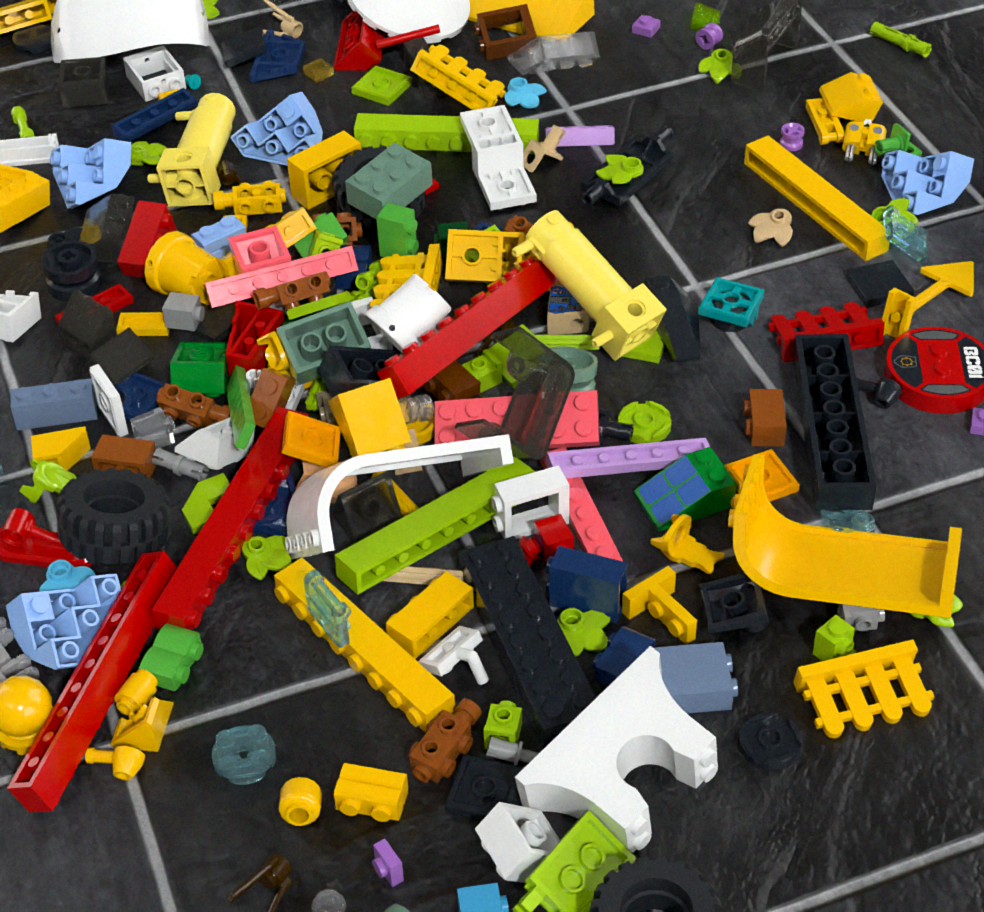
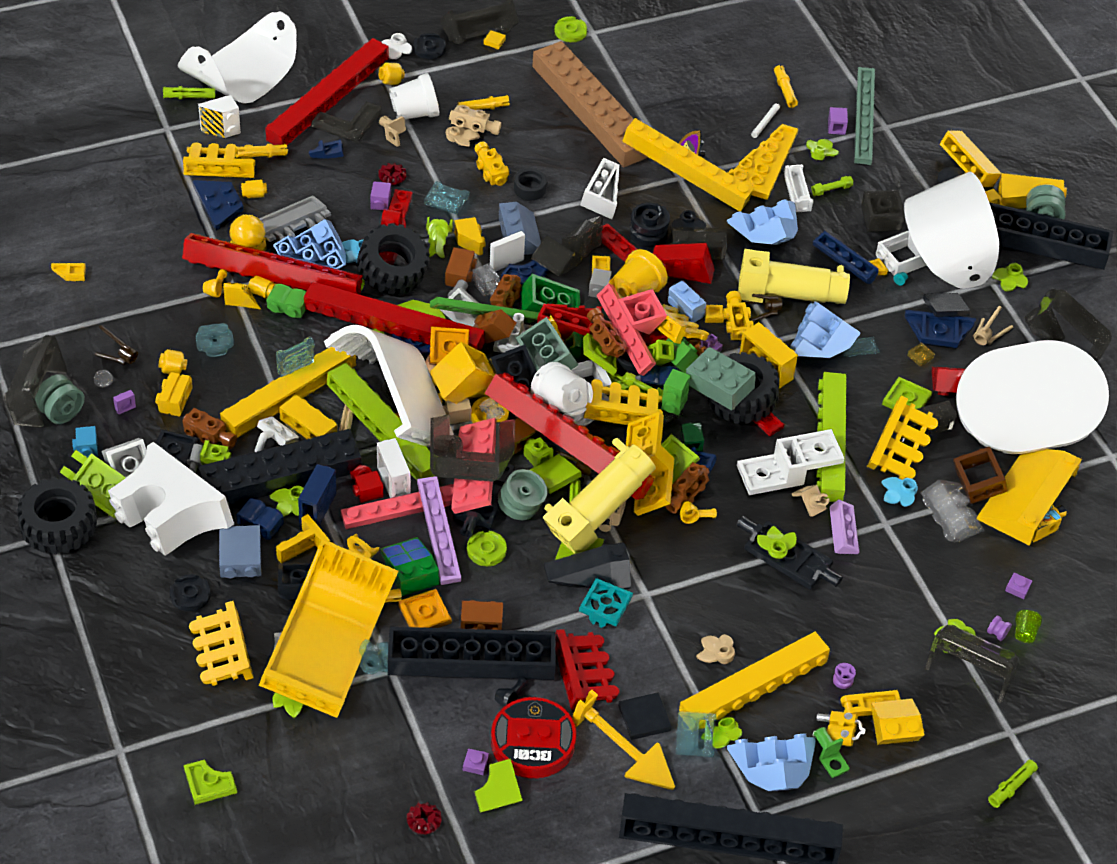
camera: 85 degrees right, 5 degrees up
(143, 152) = (803, 255): lime plate -> none
(420, 33) = (954, 402): red piece -> none
(834, 639) = (259, 631): lime brick -> none

